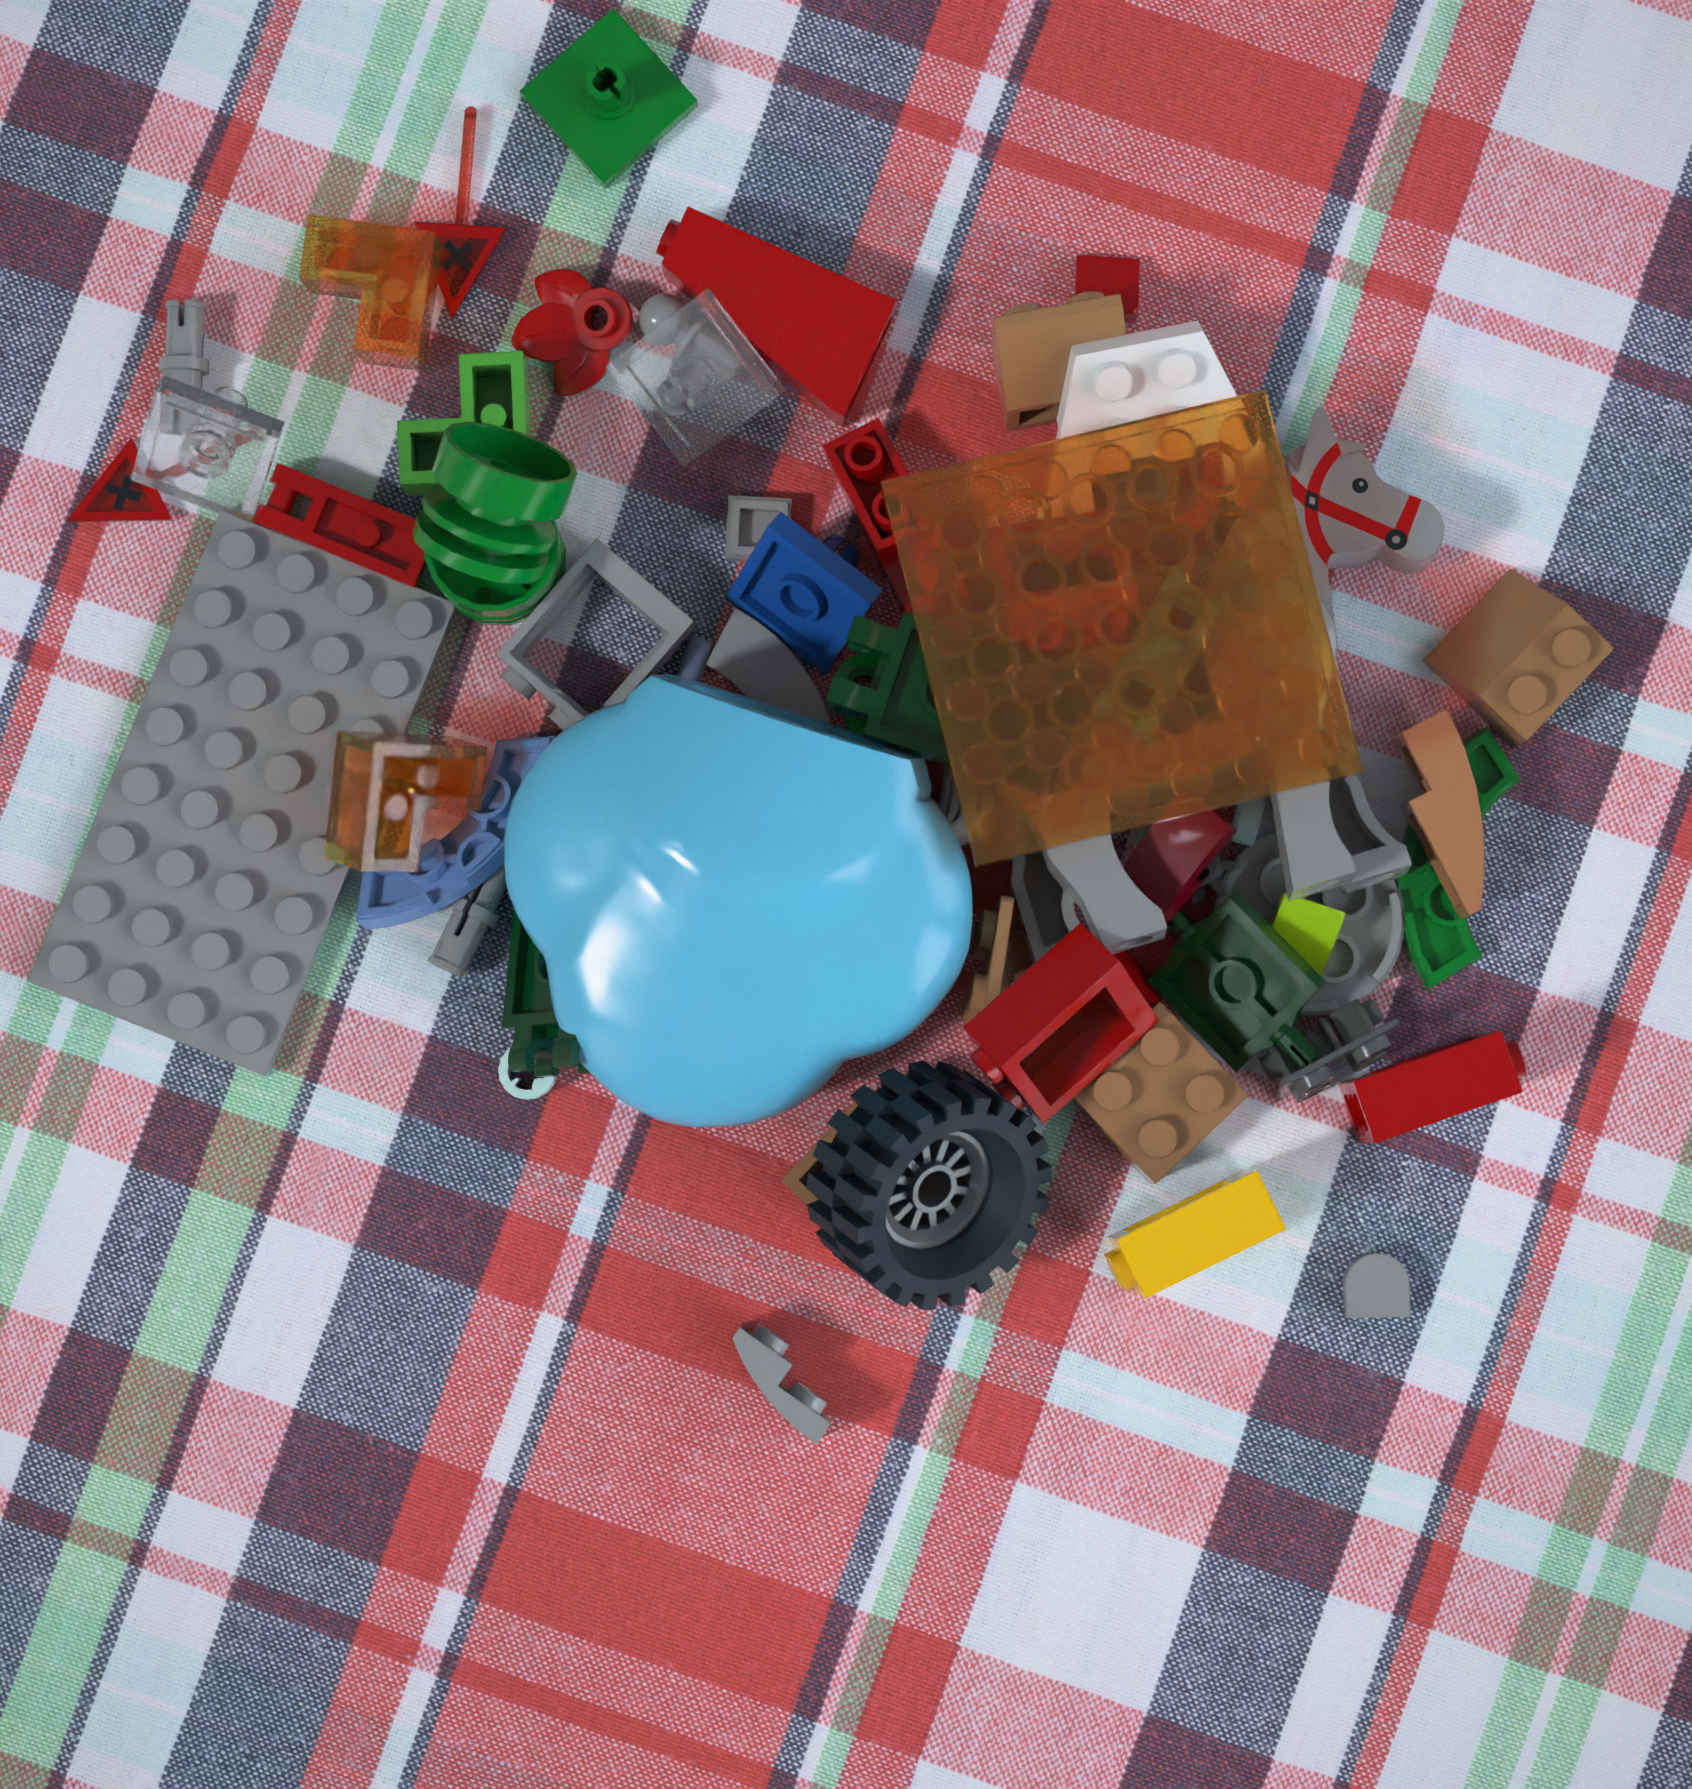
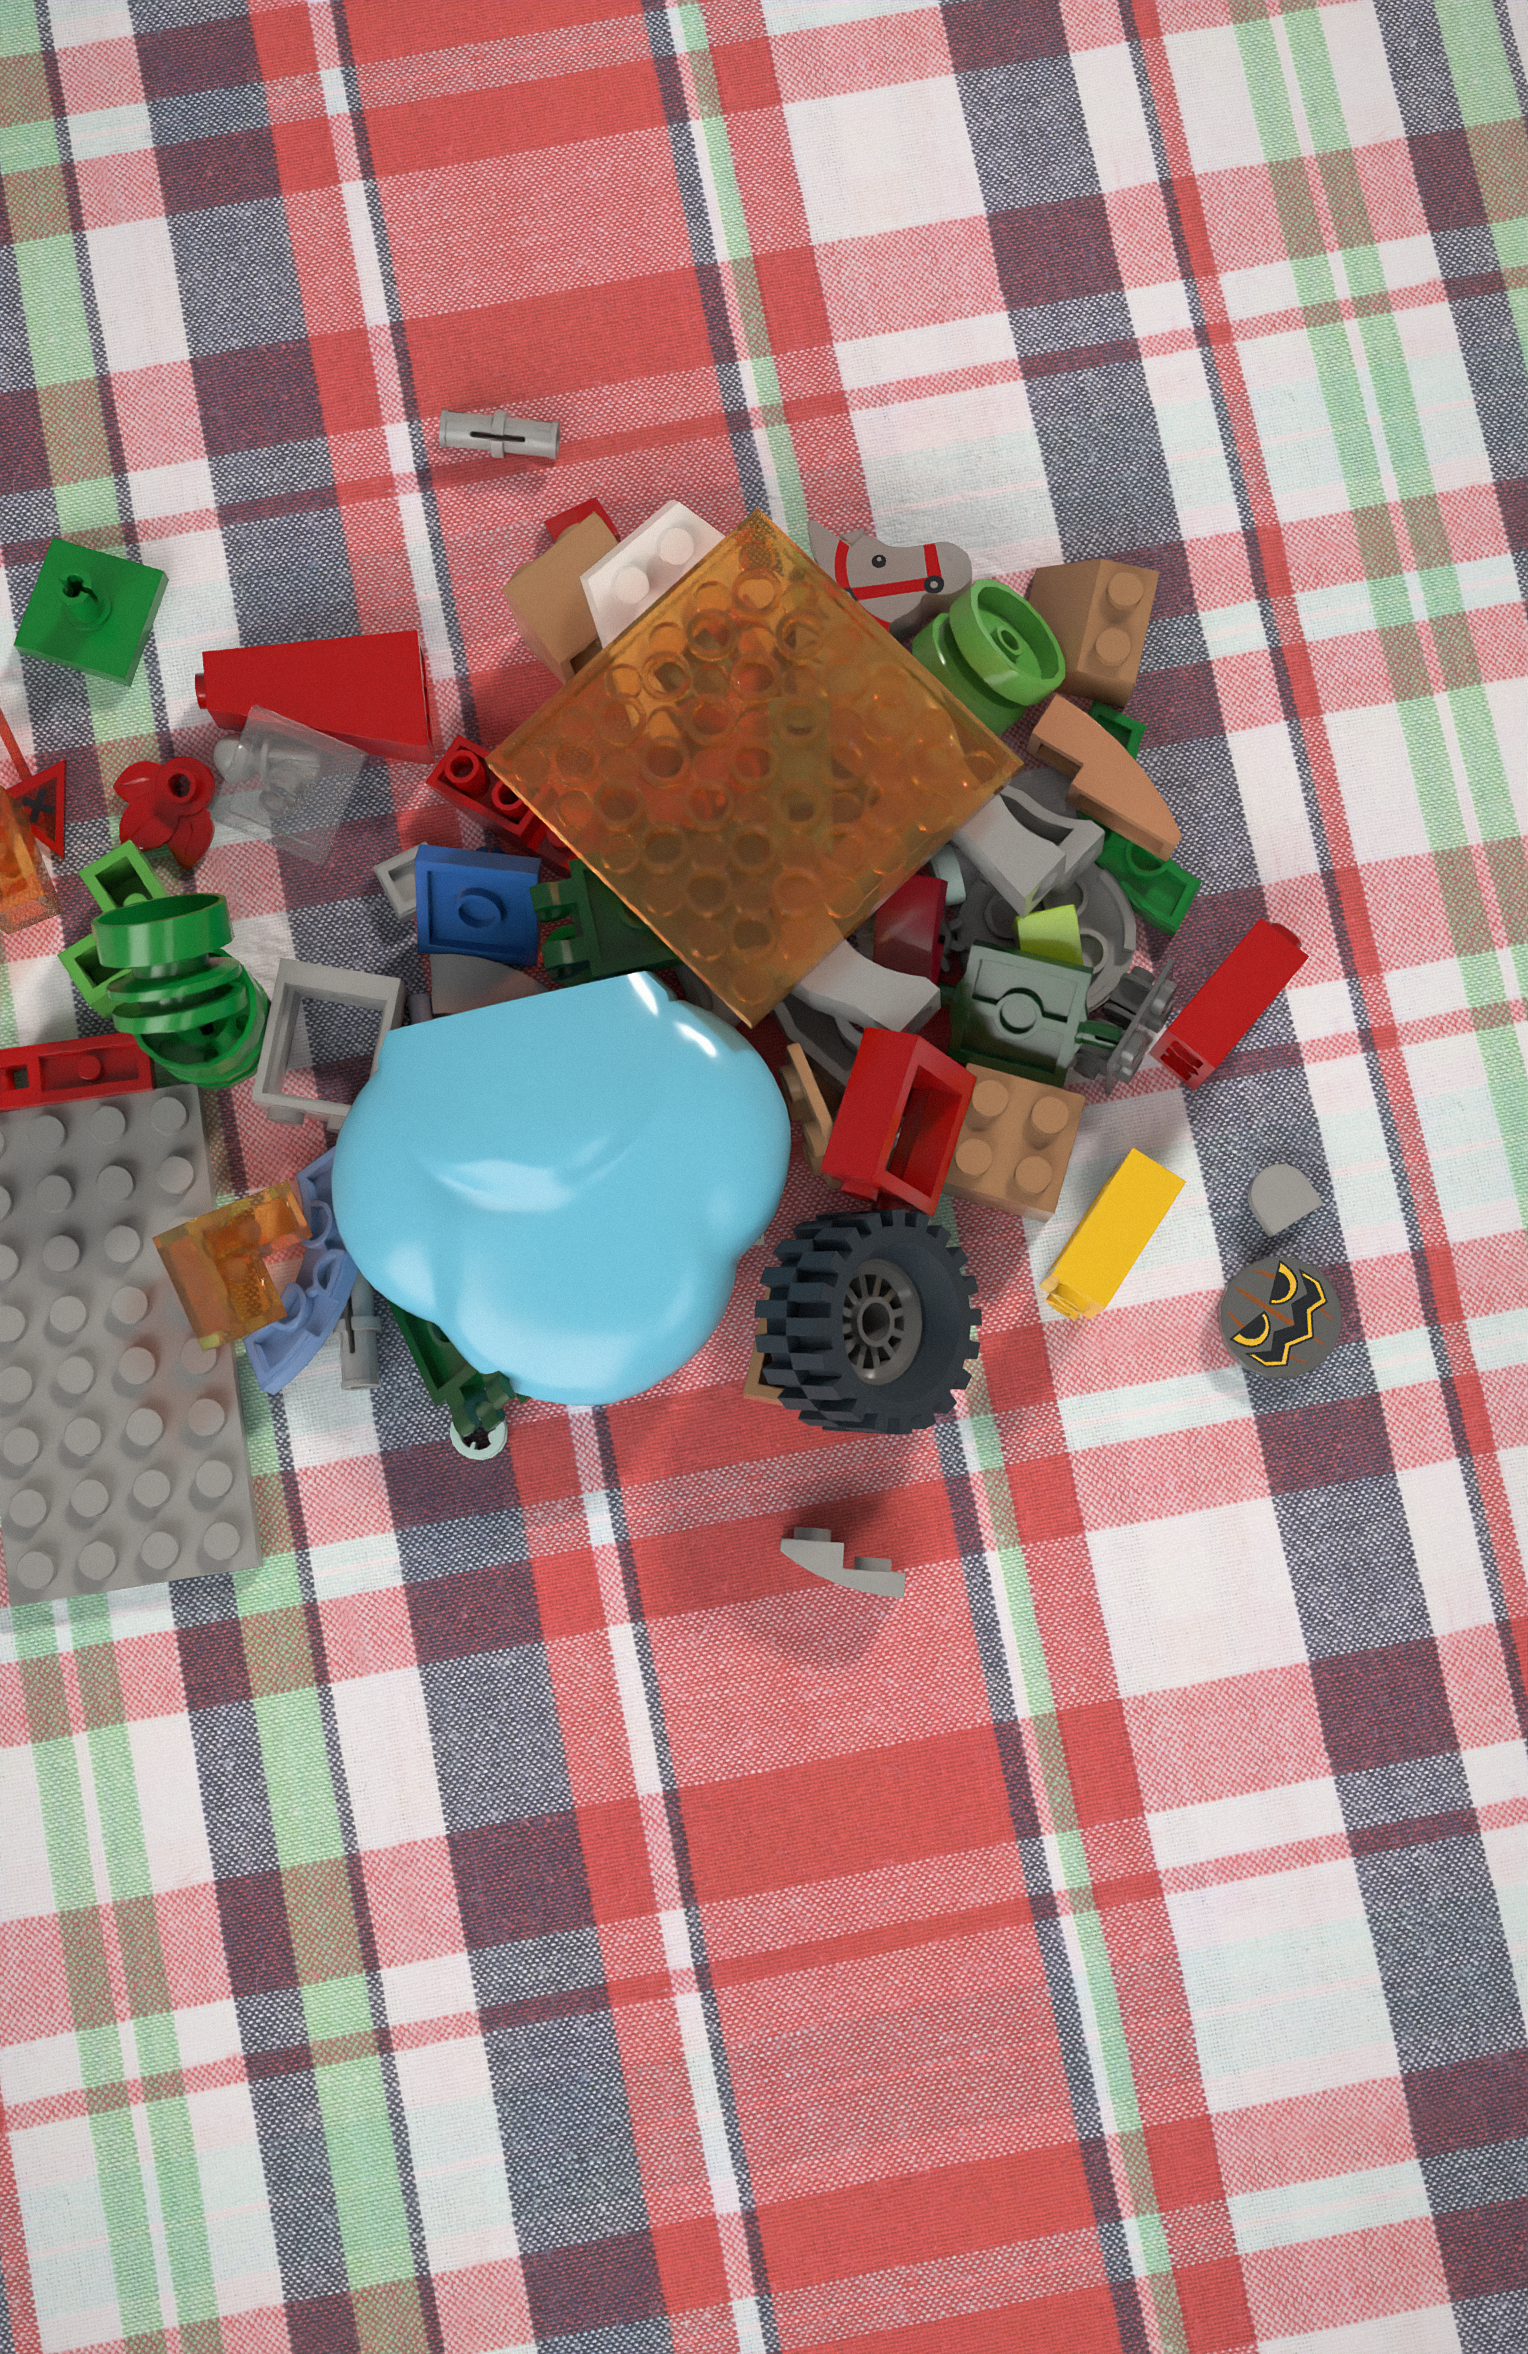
camera: 30 degrees left, 5 degrees down
(1085, 147) = (499, 434): none -> light grey pin
(1307, 1394) = (1279, 1317): none -> tile
(1406, 638) = (992, 653): none -> bright green wheel

